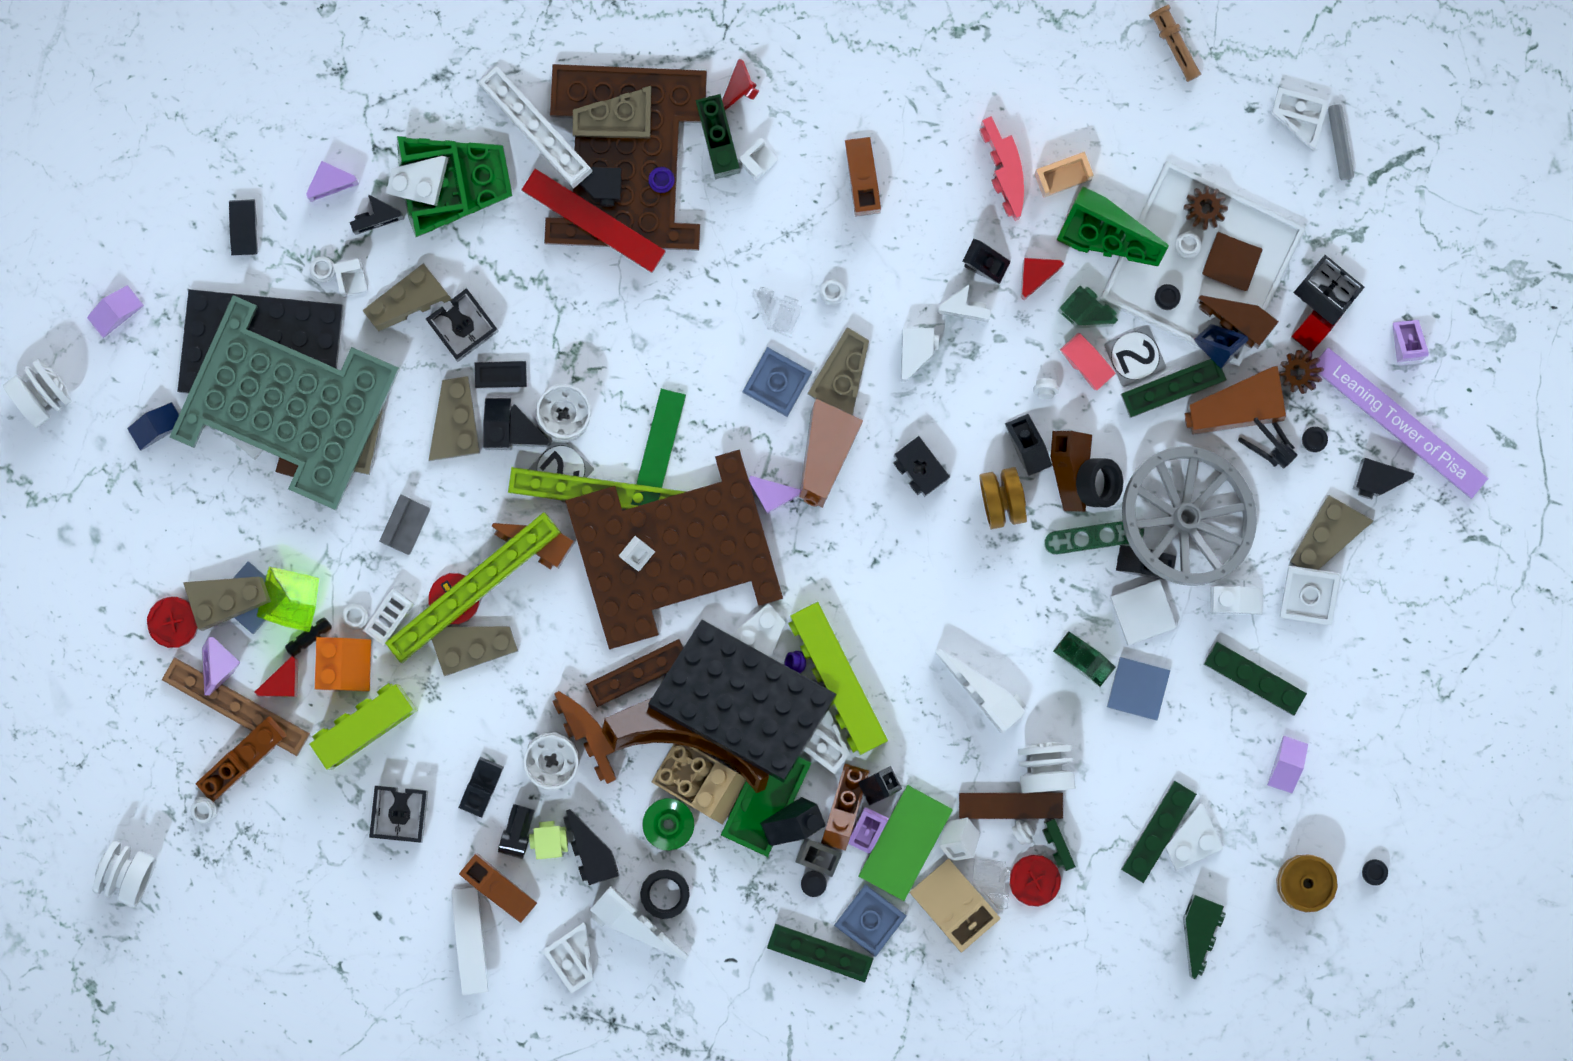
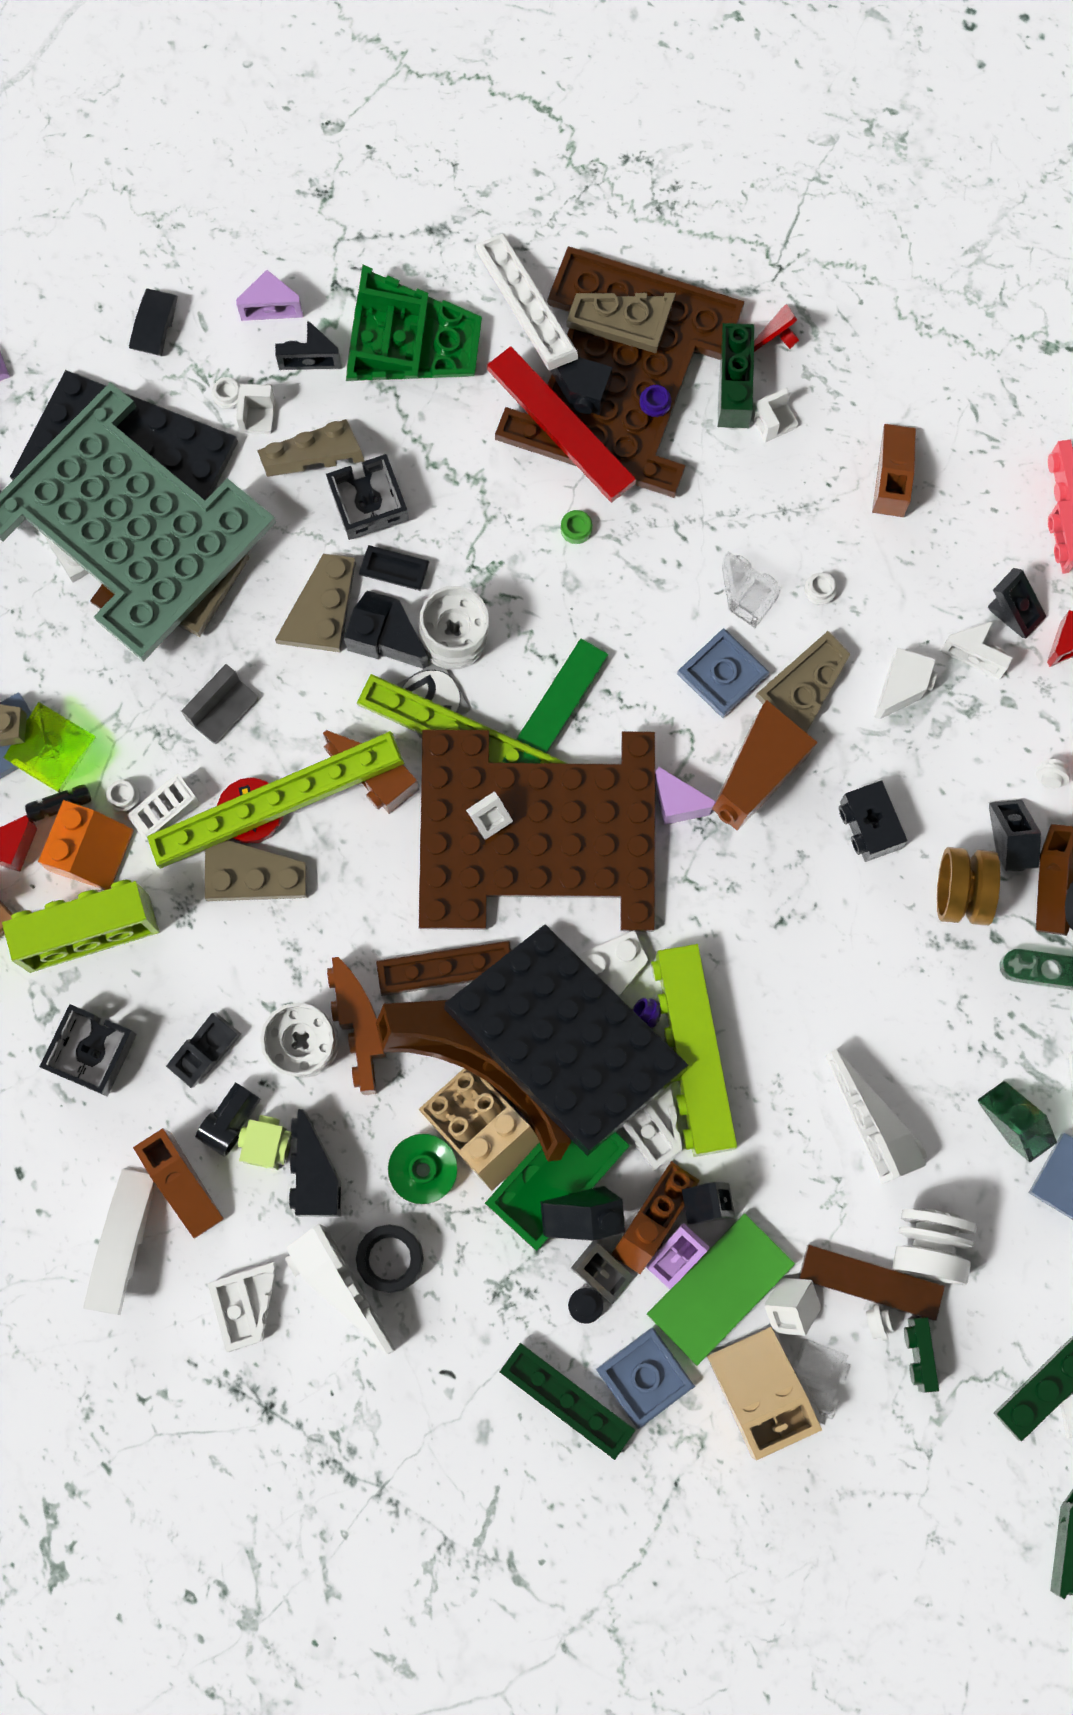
camera: 20 degrees right, 10 degrees down
(418, 180) = (371, 323): white wing -> none
(630, 297) = (576, 527): none -> bright green tile
(1035, 880) = (877, 1392): red tile -> none

